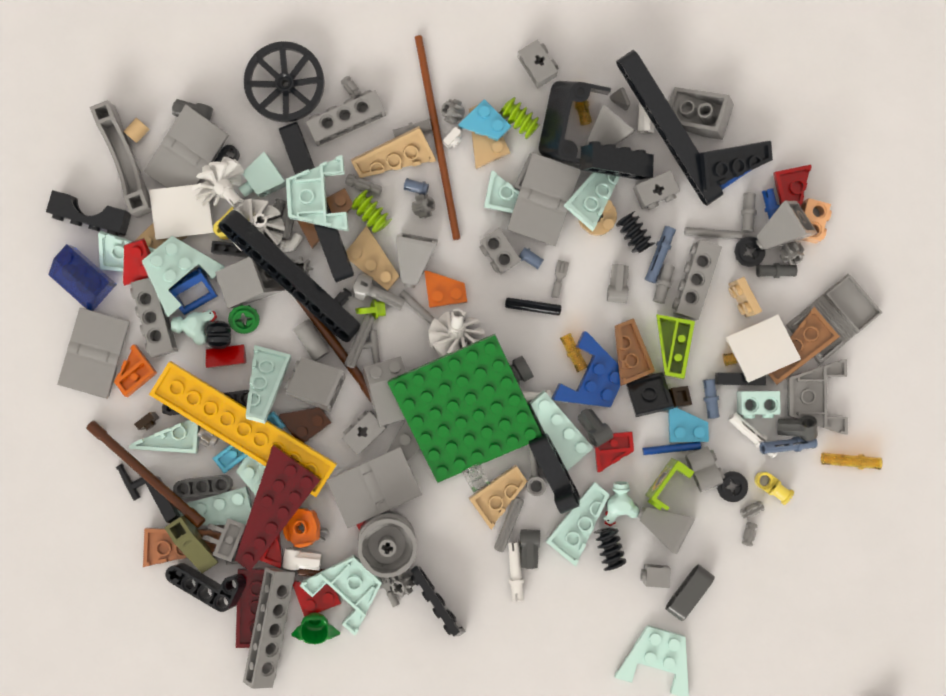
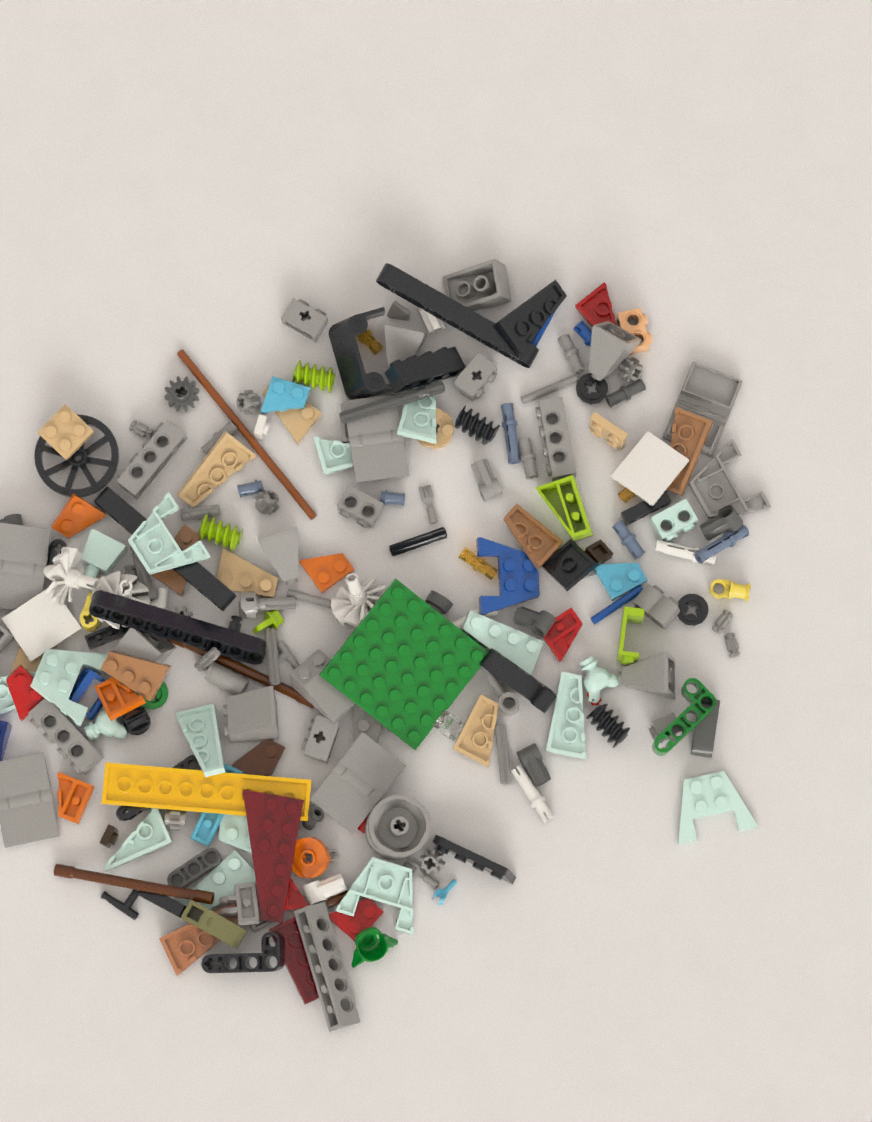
camera: 30 degrees left, 10 degrees down
(210, 310) = (117, 698): none -> orange wing
(225, 357) = (152, 738): red slope -> none
(237, 300) = (136, 673): none -> medium nougat wing
(258, 134) = (76, 516): none -> orange wing
(283, 56) = (66, 432): none -> tan plate
(303, 315) = (207, 659): none -> light grey axle
(324, 496) = (315, 816): none -> dark grey pin
(397, 614) = (442, 893): none -> medium azure hand
(400, 67) = (179, 387): none -> dark grey gear
(574, 175) = (392, 402): none -> dark grey axle
(673, 581) = (682, 721): none -> green beam
(852, 461) = (785, 530): clear yellow pin -> none

